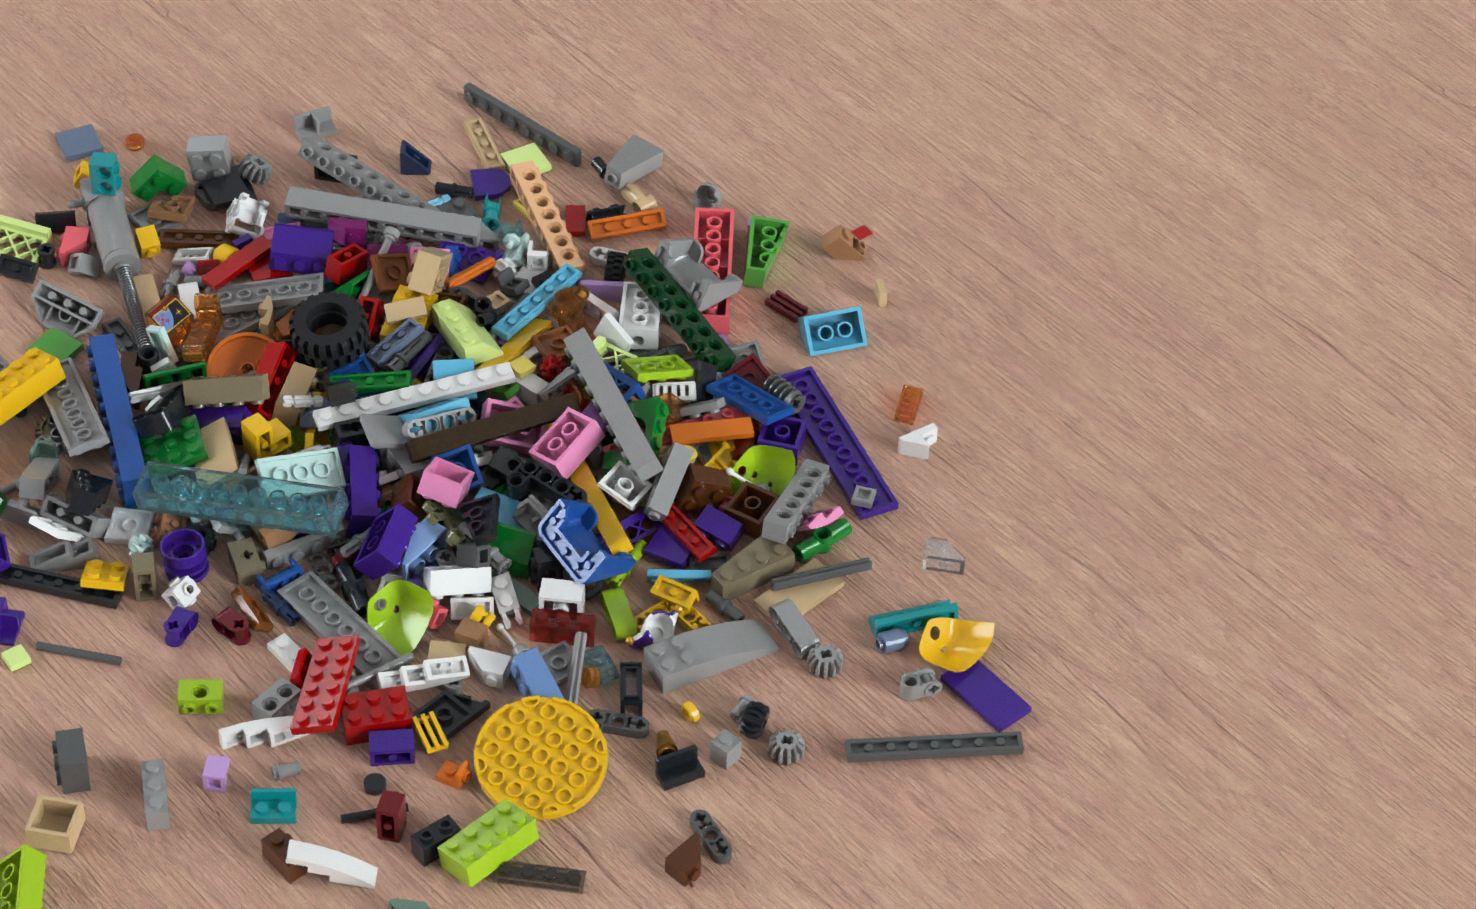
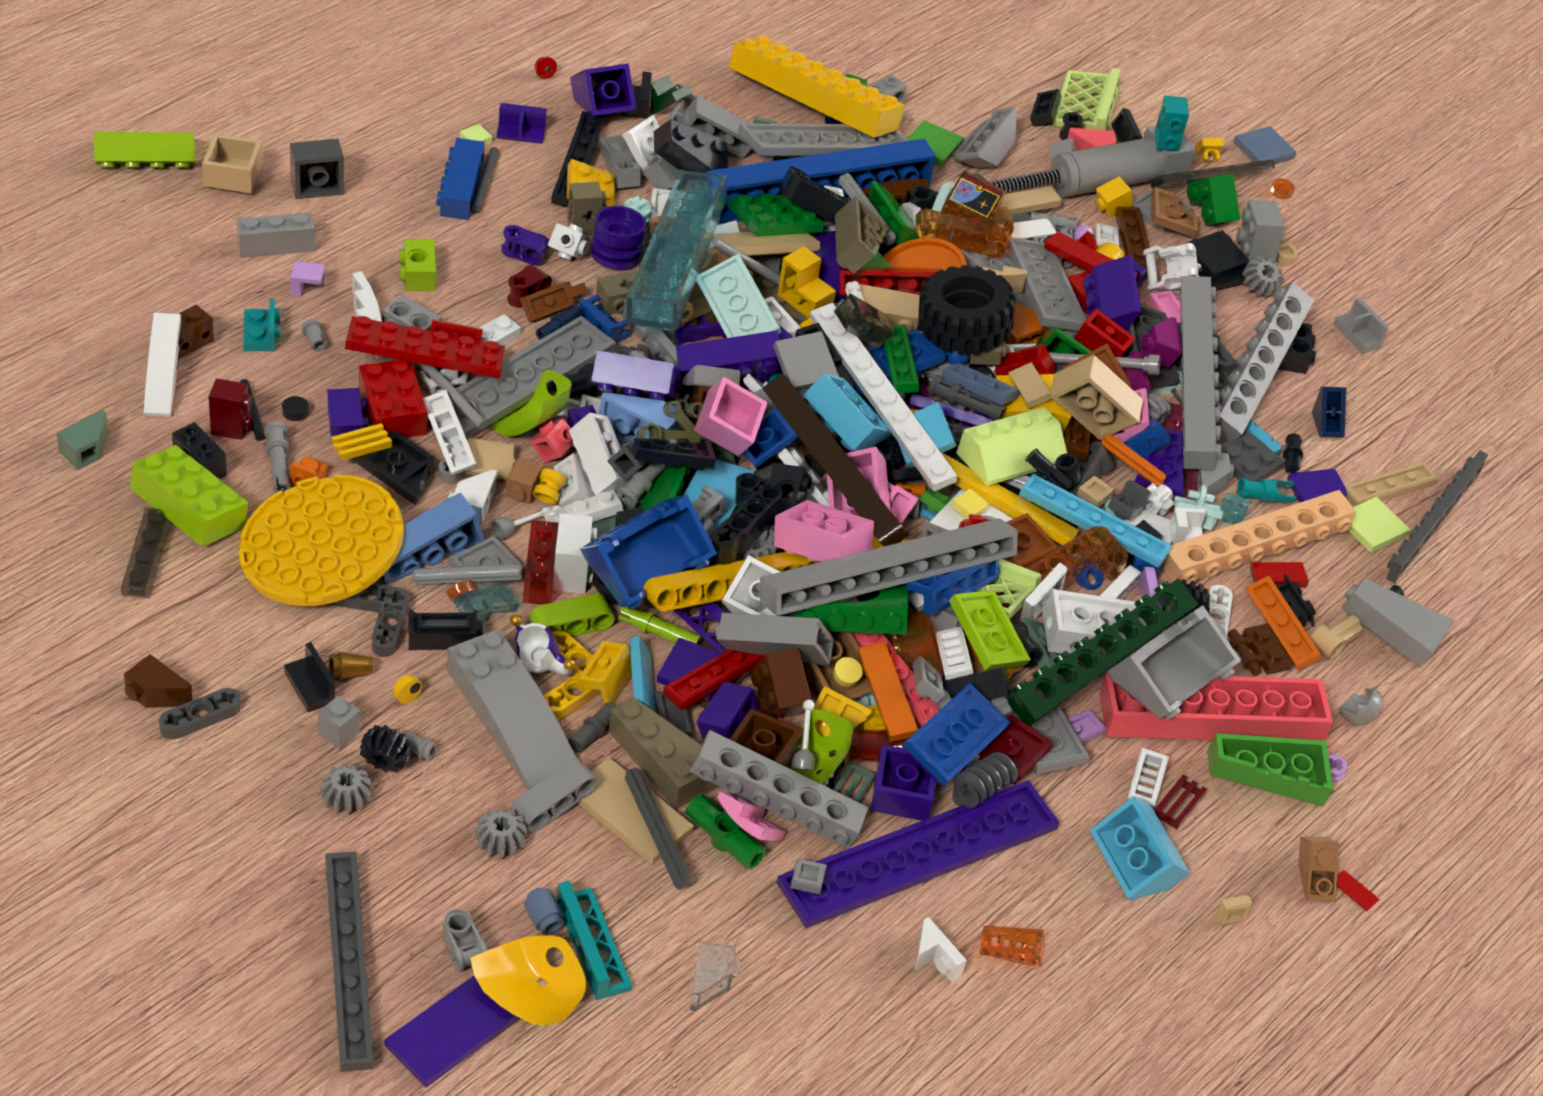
camera: 80 degrees right, 0 degrees up
(82, 665) = (461, 178): none -> blue brick
(132, 192) = (1188, 176): none -> clear smoke tile
(387, 497) = (708, 376): none -> light grey slope
(426, 792) = (278, 449): none -> light grey pin
(438, 420) = (826, 400): light grey beam -> none
(646, 239) = (1265, 647): none -> reddish brown plate
(760, 317) = (1154, 760): none -> white slope

